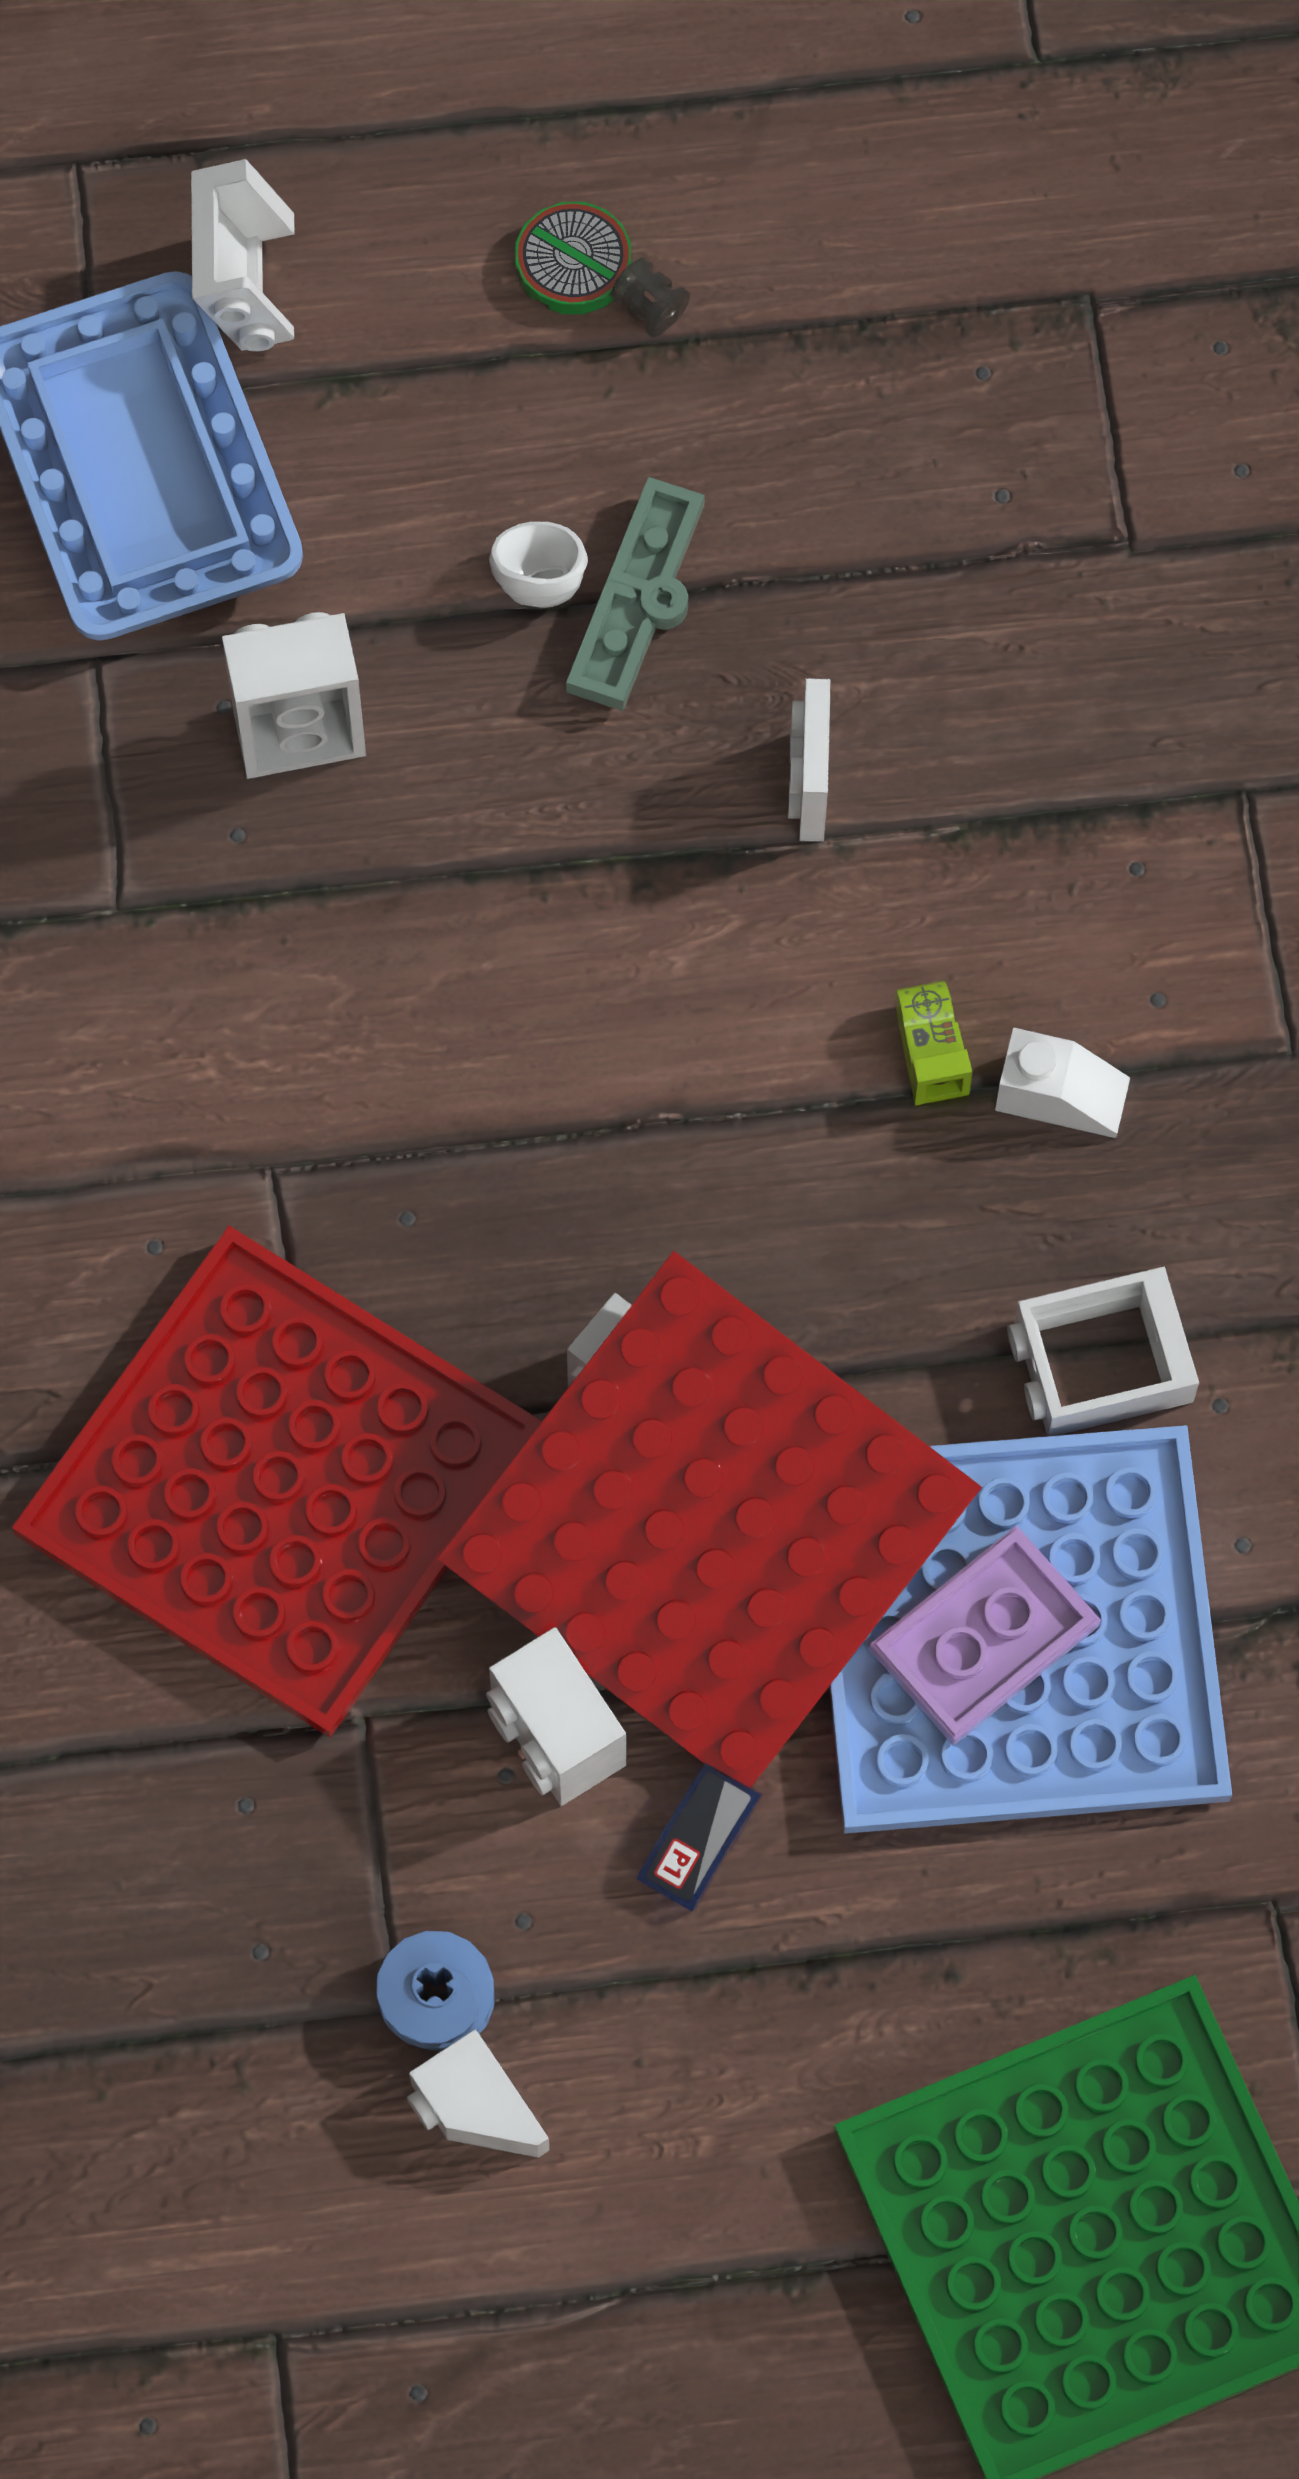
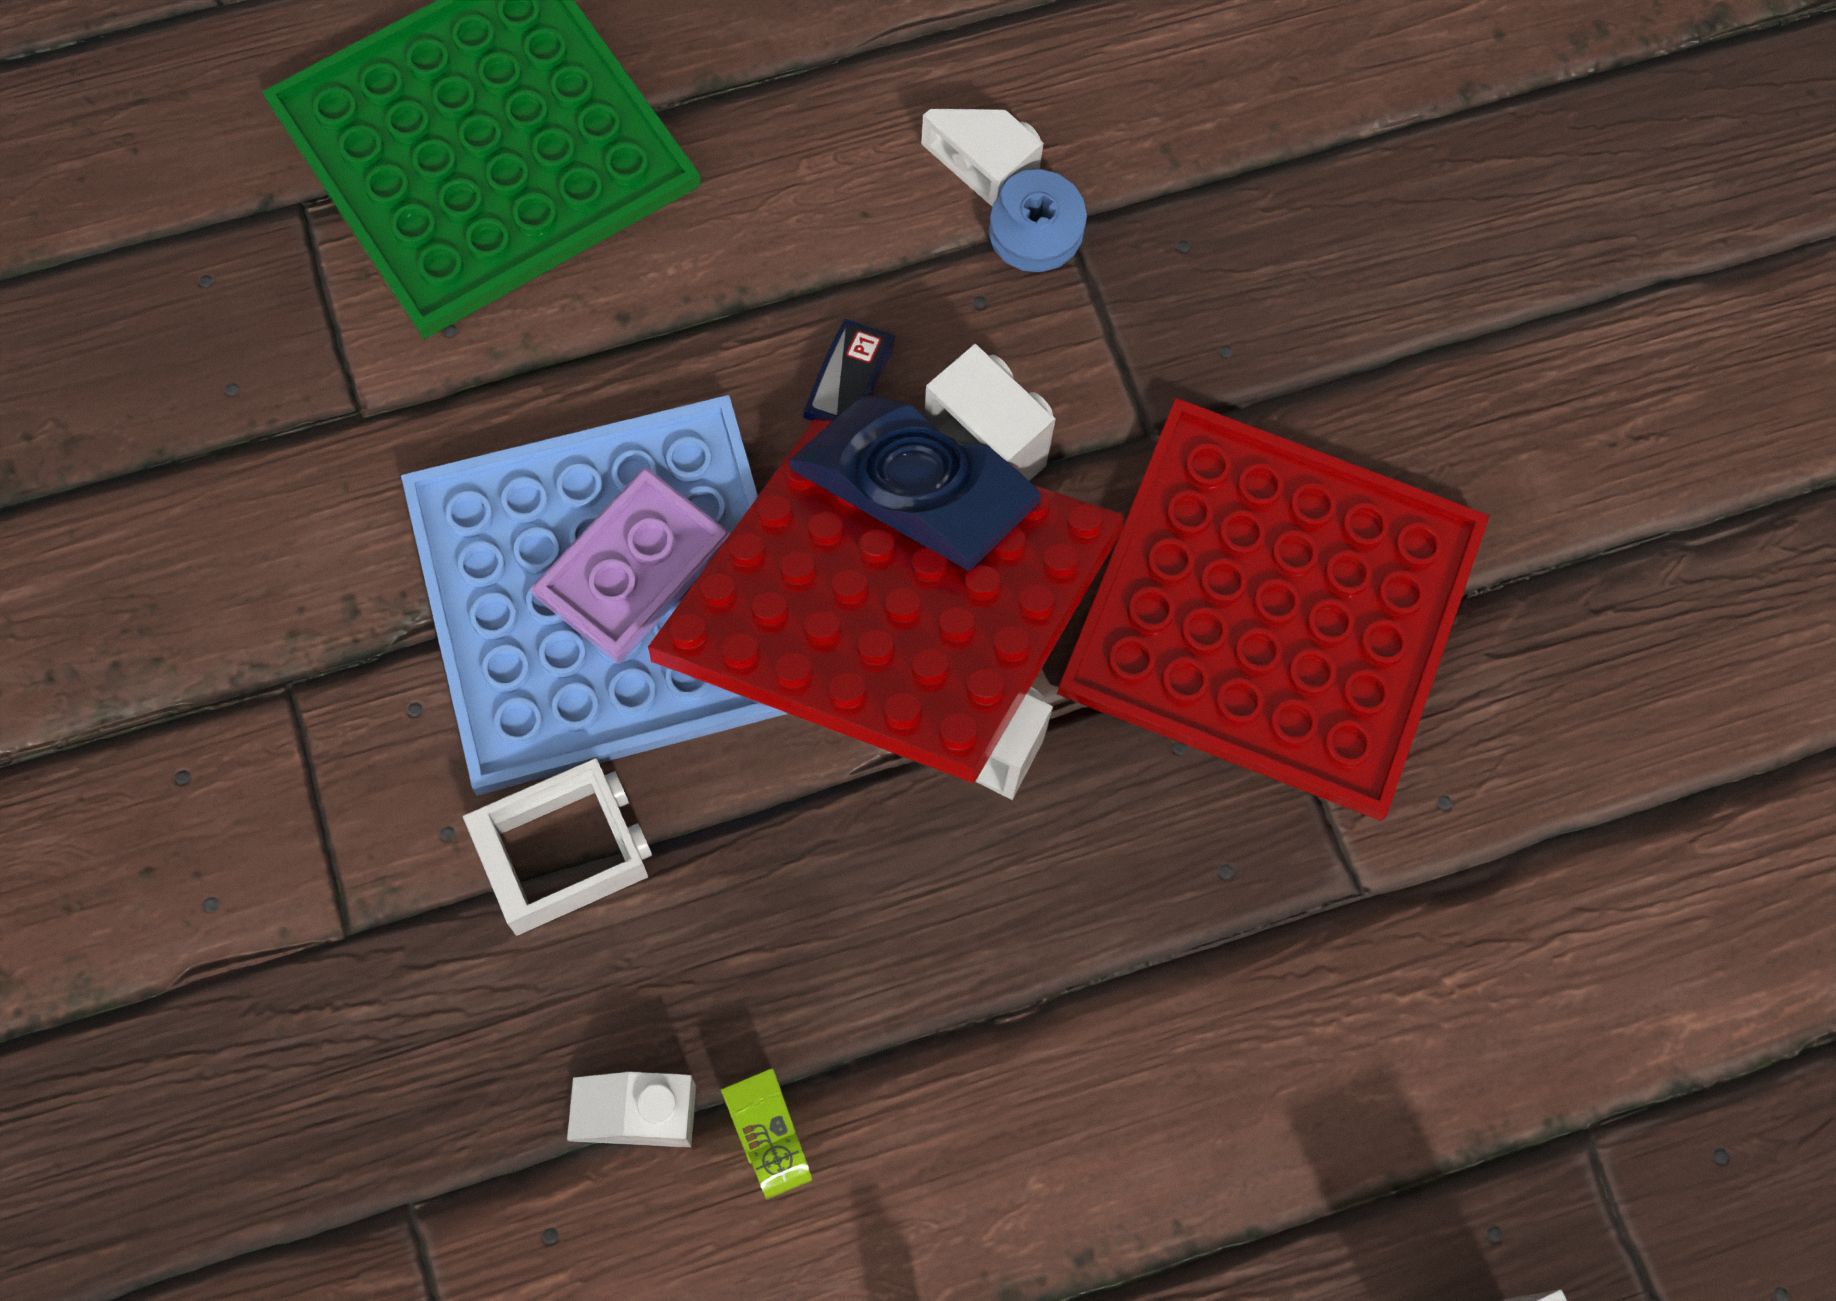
camera: 165 degrees right, 0 degrees up
(658, 1645) = (918, 479): none -> dark blue slope

